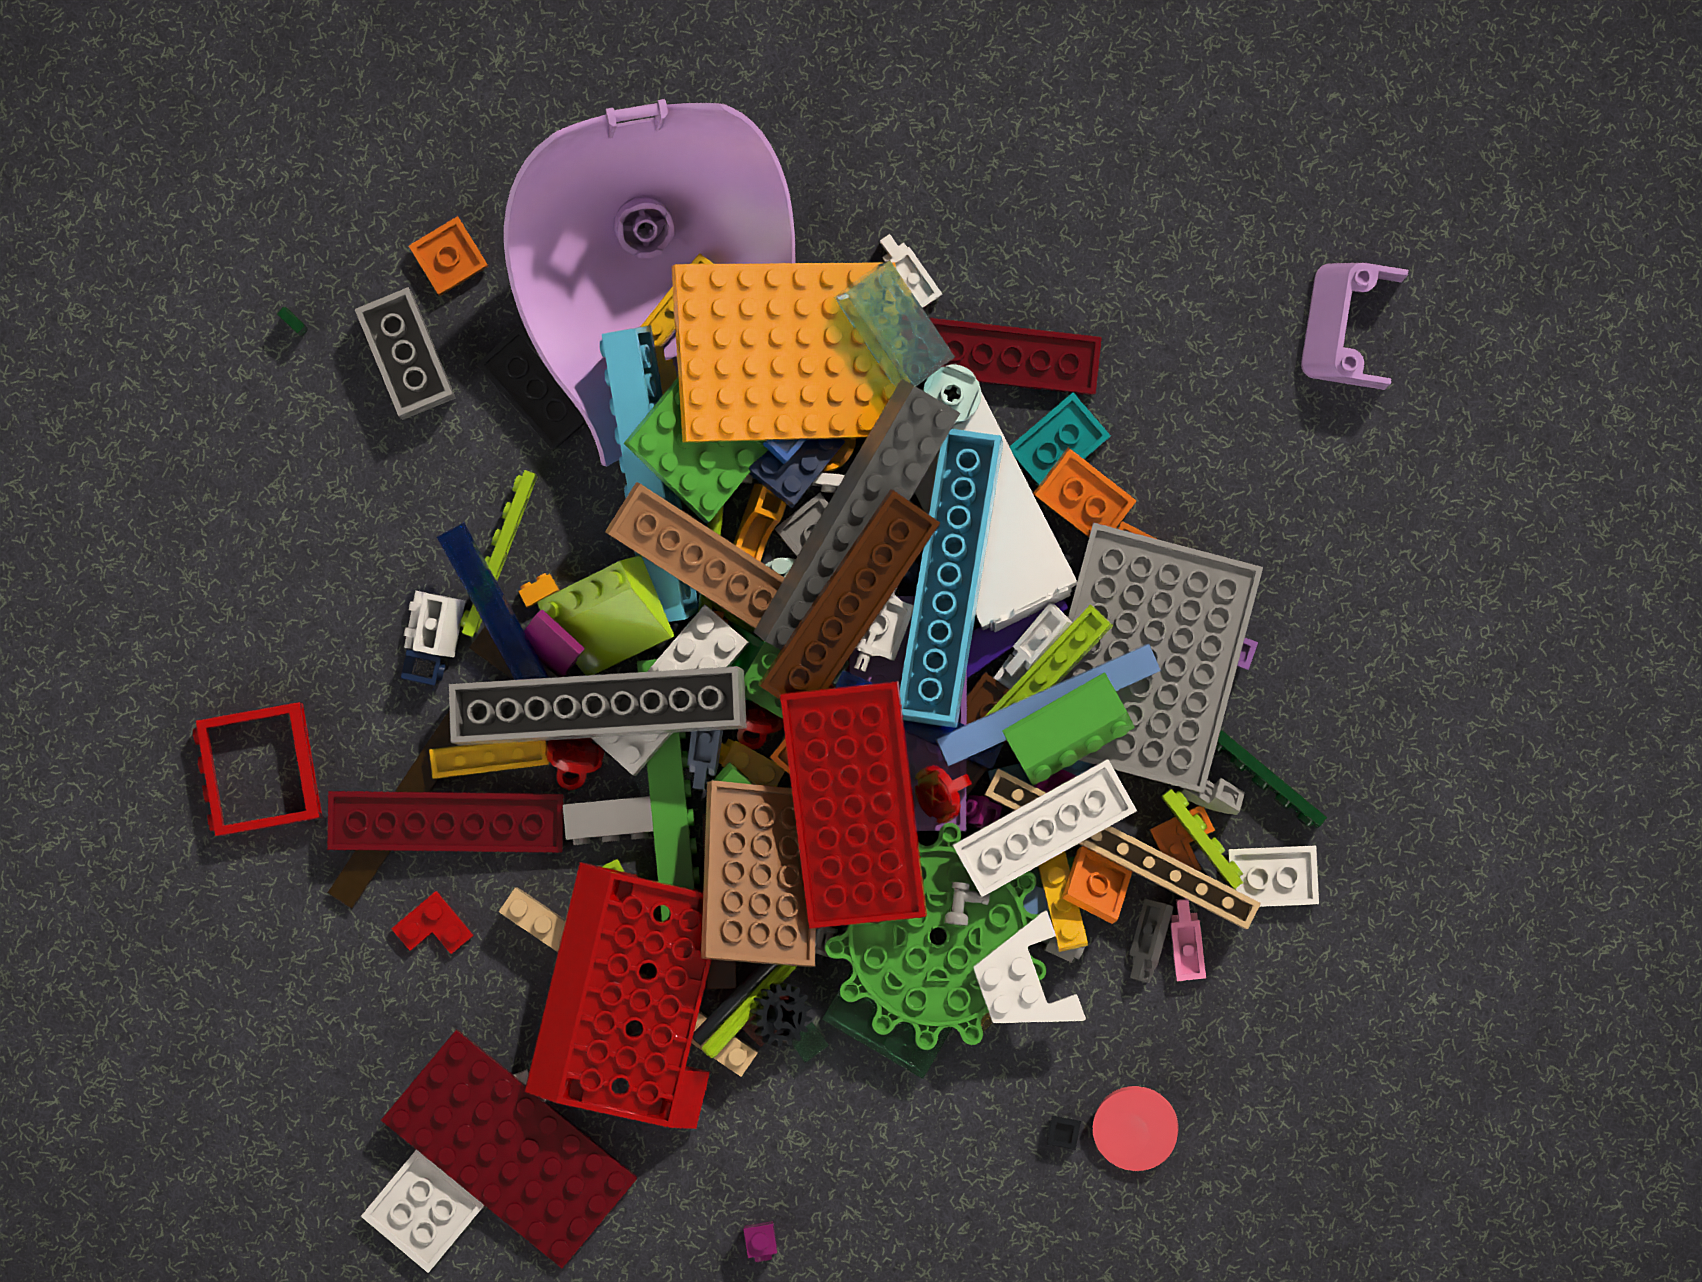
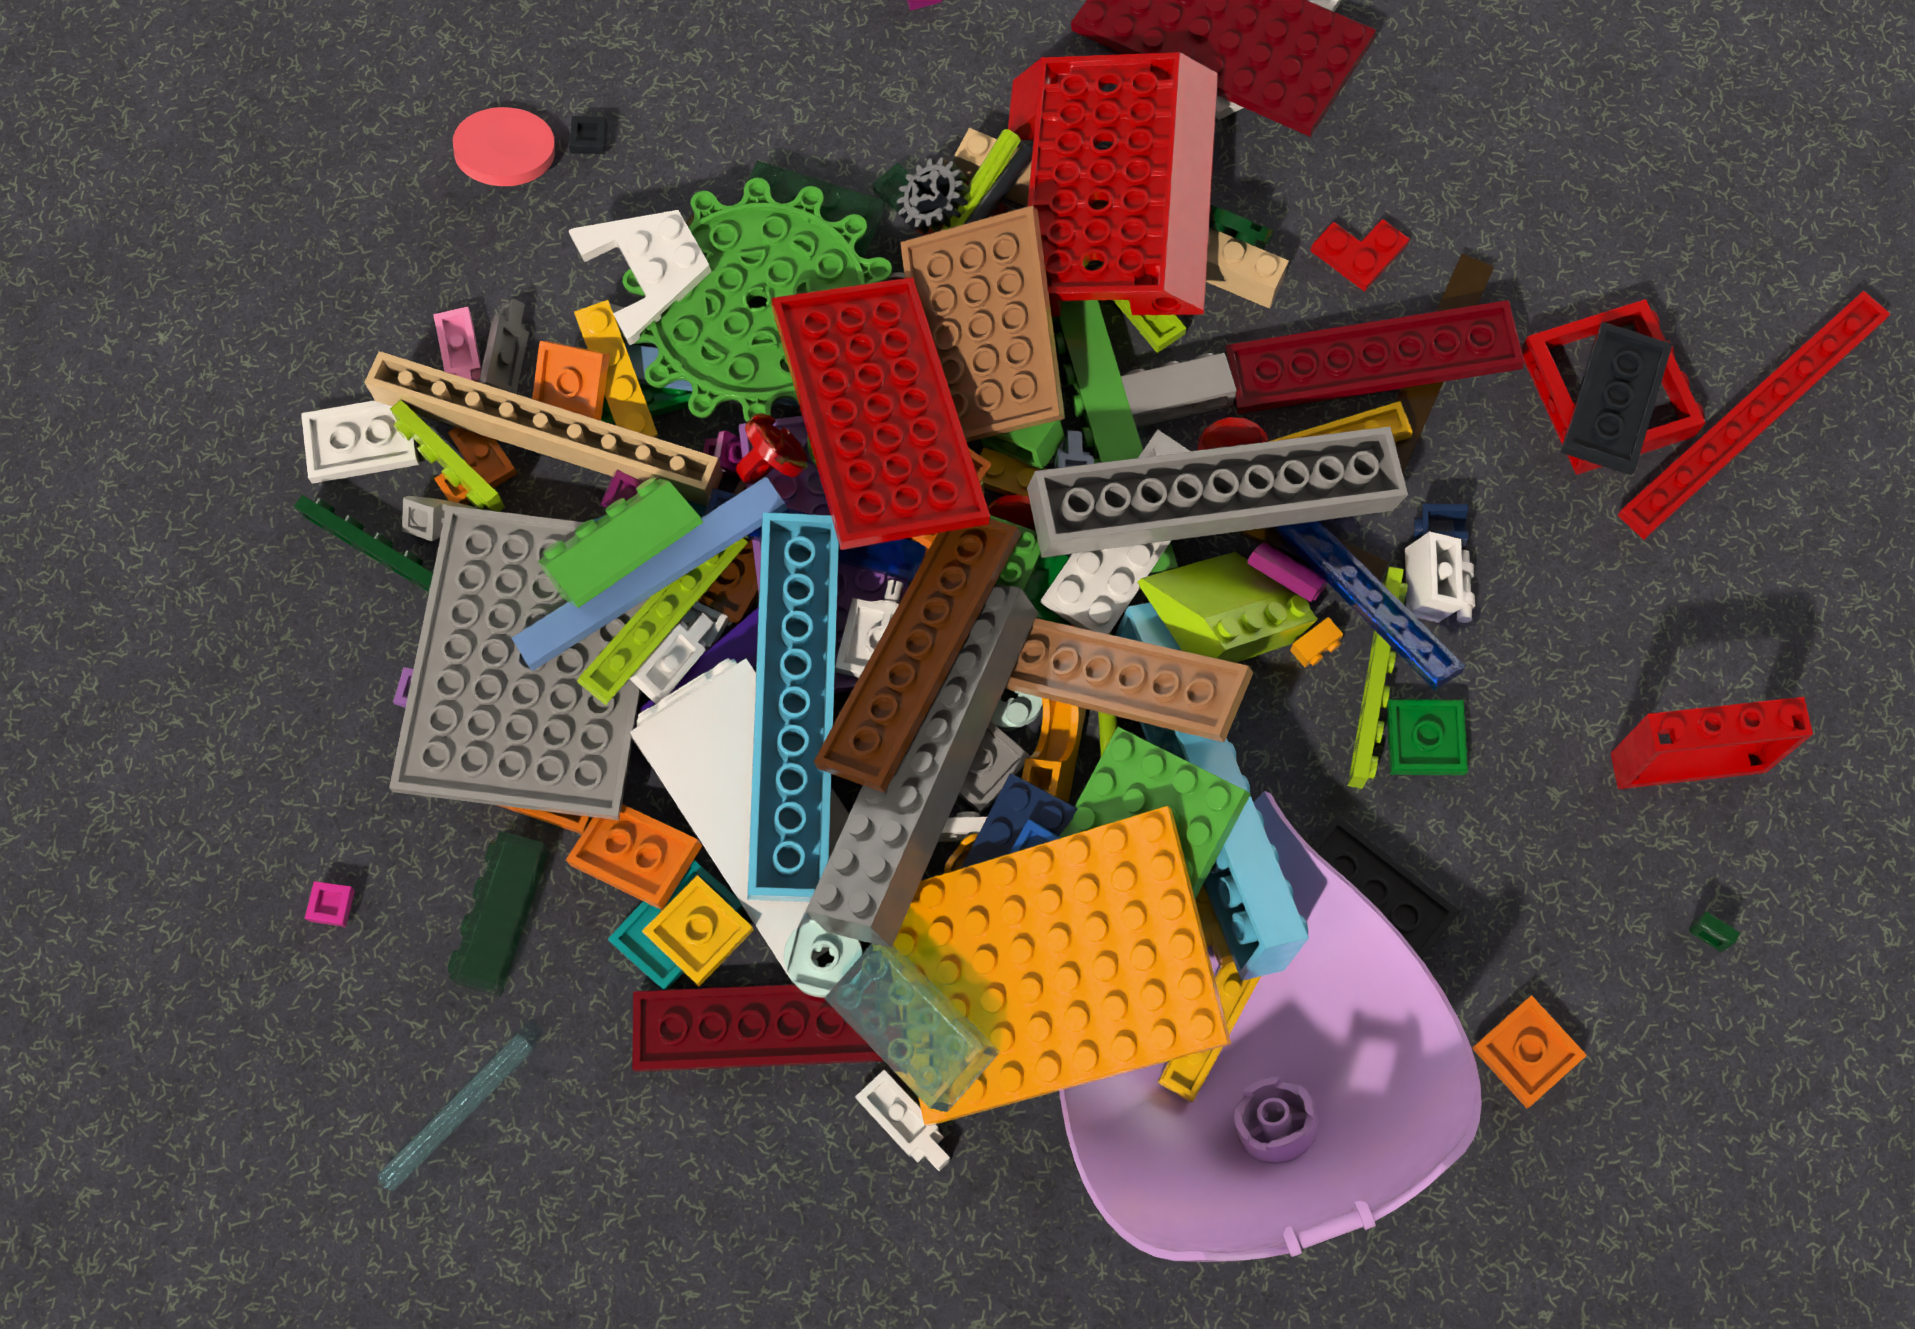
camera: 175 degrees right, 15 degrees down
(148, 730) = (1753, 415): none -> red plate
(263, 747) = (1616, 398): none -> black plate
(266, 450) = (1710, 742): none -> red window
(405, 353) = (1557, 907): light grey brick -> none
(470, 500) = (1426, 737): none -> green plate
(531, 953) = (1247, 230): none -> dark green plate
(961, 895) = (736, 315): light grey piece -> none
(1042, 428) = (698, 930): none -> yellow plate
(1044, 827) = (637, 424): white plate -> none
(1190, 467) = (498, 914): none -> clear green brick
(1233, 327) = (454, 1113): none -> clear light blue axle
(1316, 495) = (330, 904): none -> dark pink plate
(1327, 322) = (321, 1139): lavender windscreen -> none

